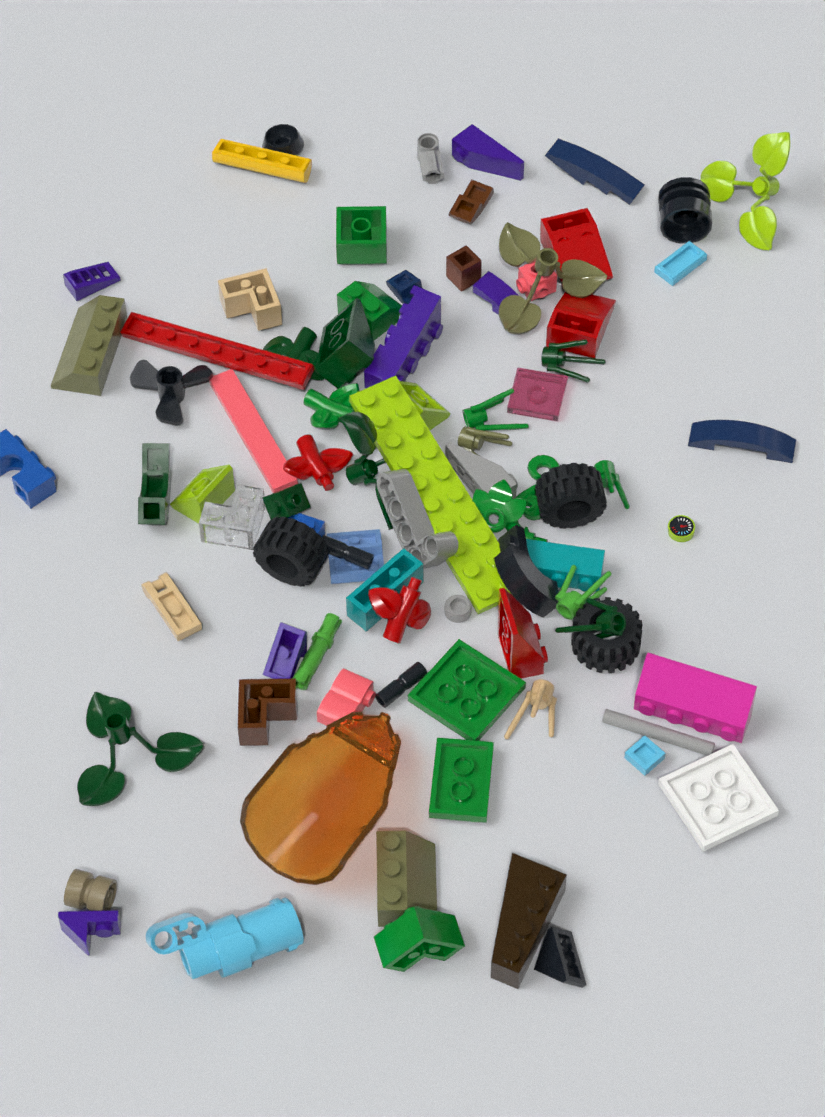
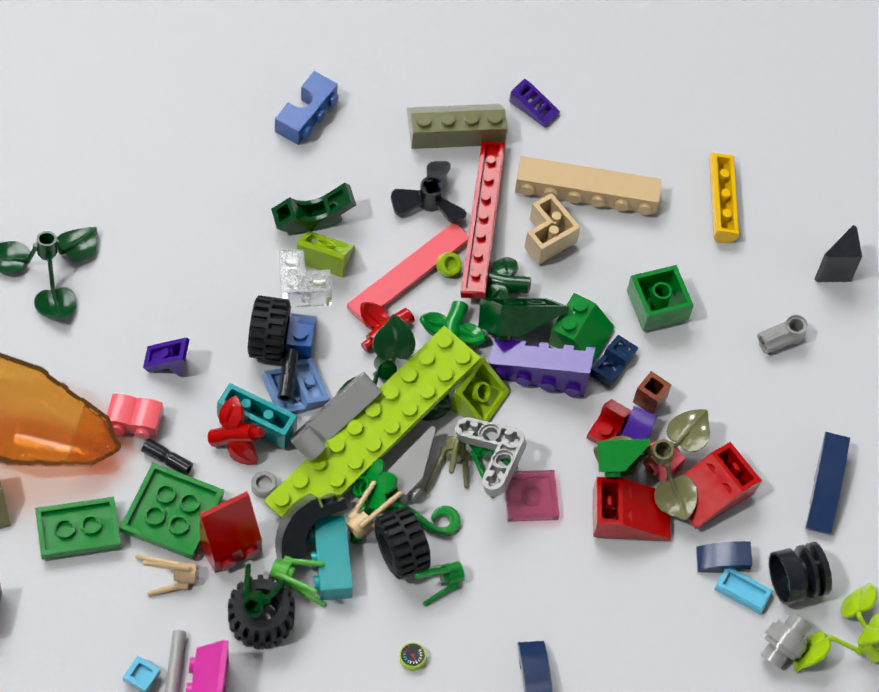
camera: 65 degrees right, 5 degrees up
(172, 607) = (198, 259): tan plate -> none
(208, 260) = (588, 185): none -> tan brick
(258, 393) = (448, 264): none -> lime tile
(264, 702) = (105, 346): reddish brown brick -> none
(281, 502) = (326, 313): dark green brick -> none
(283, 139) = (755, 208): black hat -> none
(321, 642) = (183, 381): bright green pin -> none
(366, 88) = (841, 259): none -> black slope
(472, 202) = (745, 386): reddish brown slope -> none
(479, 314) = (610, 422): none -> red slope
(485, 154) = (808, 378): dark purple slope -> none
(497, 386) = (500, 445): none -> light grey beam
(532, 299) = (620, 455): none -> green slope
(536, 526) = (361, 523): none -> tan plant
(554, 357) = (576, 500): dark green plant -> none
(646, 265) = (724, 555): none -> dark blue slope
(745, 240) = (786, 640): none -> light grey piece

